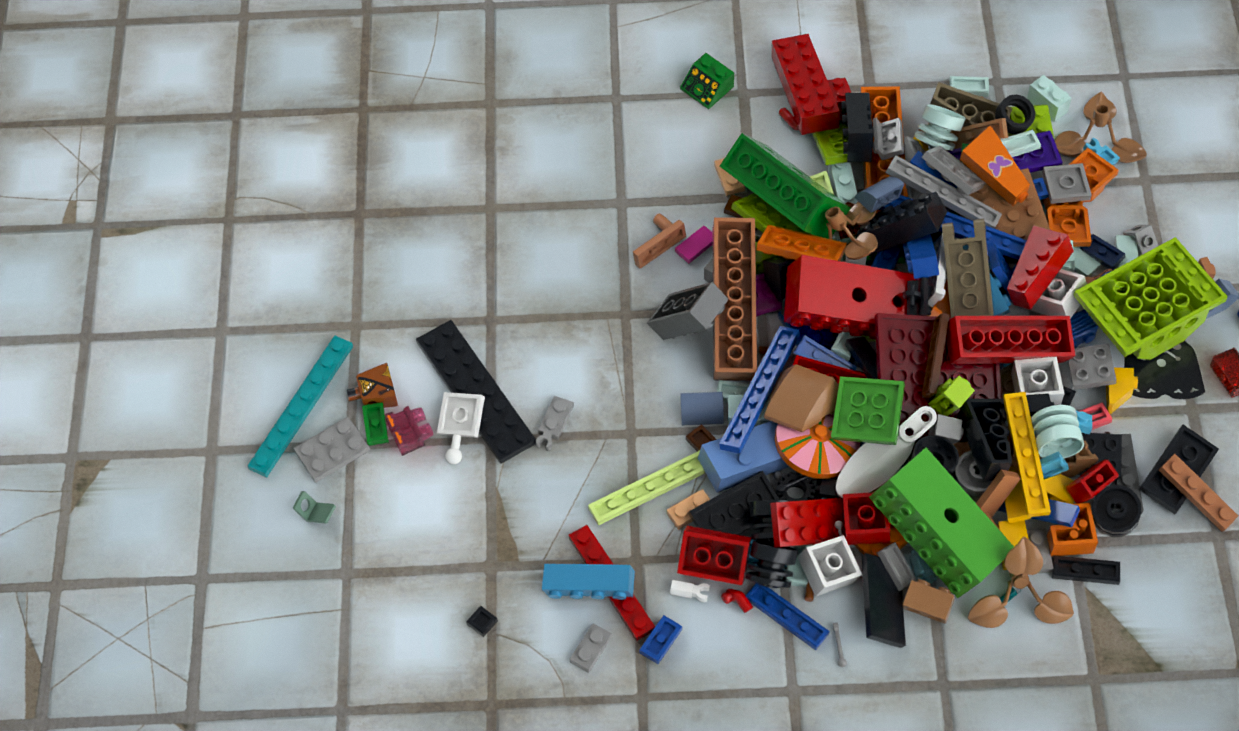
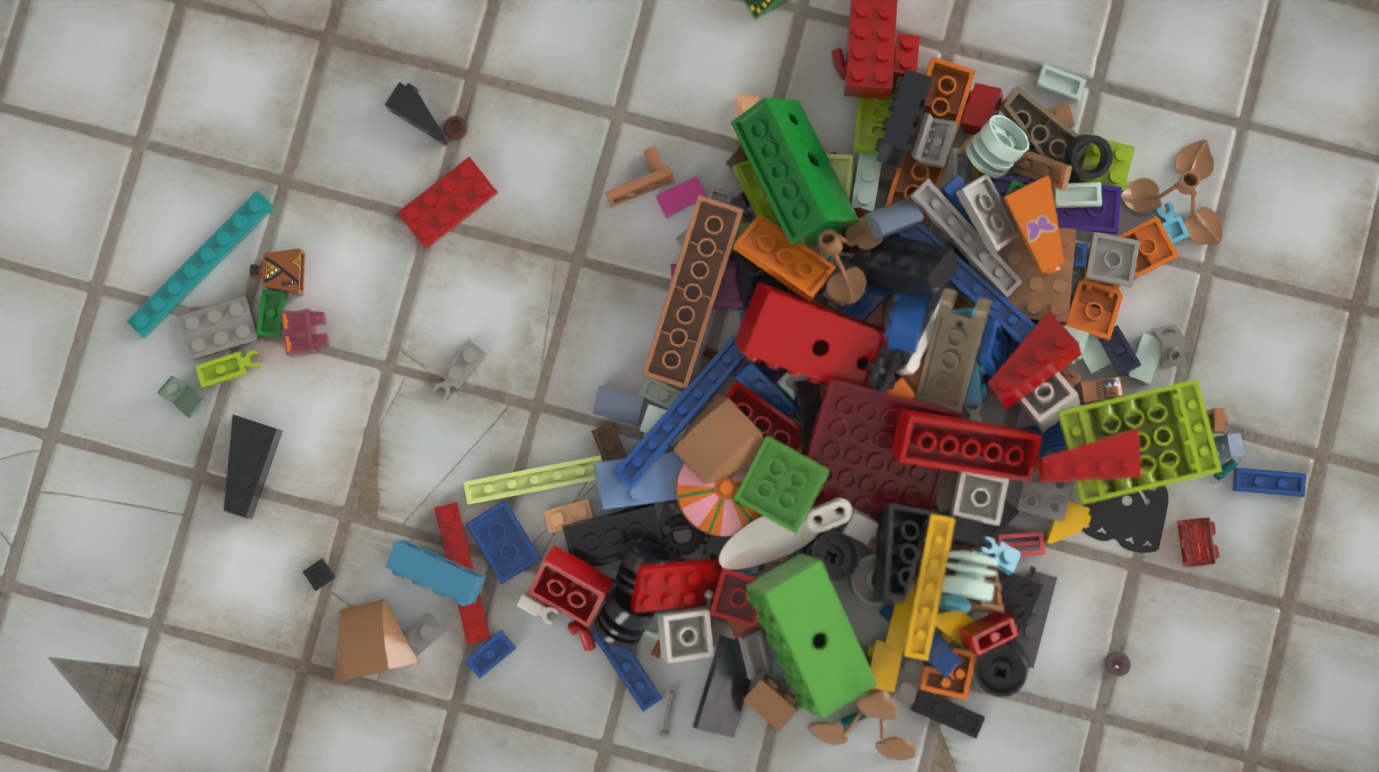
camera: 15 degrees right, 25 degrees up
(348, 477) = (225, 368): none -> lime plate
(391, 539) = (249, 463): none -> black wedge
(449, 240) = (409, 106): none -> black slope
(459, 418) = (361, 339): white plate -> none
(465, 374) = (388, 304): black plate -> none
(489, 246) = (455, 128): none -> reddish brown tile
(501, 302) = (447, 203): none -> red plate
(546, 660) = (370, 642): none -> medium nougat wedge
(639, 546) = (503, 542): none -> blue tile
(688, 311) = (635, 297): dark grey brick -> none
(912, 113) = (981, 106): none -> red brick
(935, 356) = (877, 443): reddish brown tile -> none
(951, 396) = (876, 496): lime brick -> none
(998, 492) = (875, 618): nougat piece -> none
(1045, 92) = (1142, 131): light aqua brick -> none
(1120, 313) = (1101, 460): none -> red wedge
(1193, 451) = (1089, 635): black plate -> none
(1198, 492) = (1097, 670): nougat plate -> none
(1216, 484) = (1118, 664): none -> dark grey tile
(1230, 315) = (1226, 468): none -> teal piece

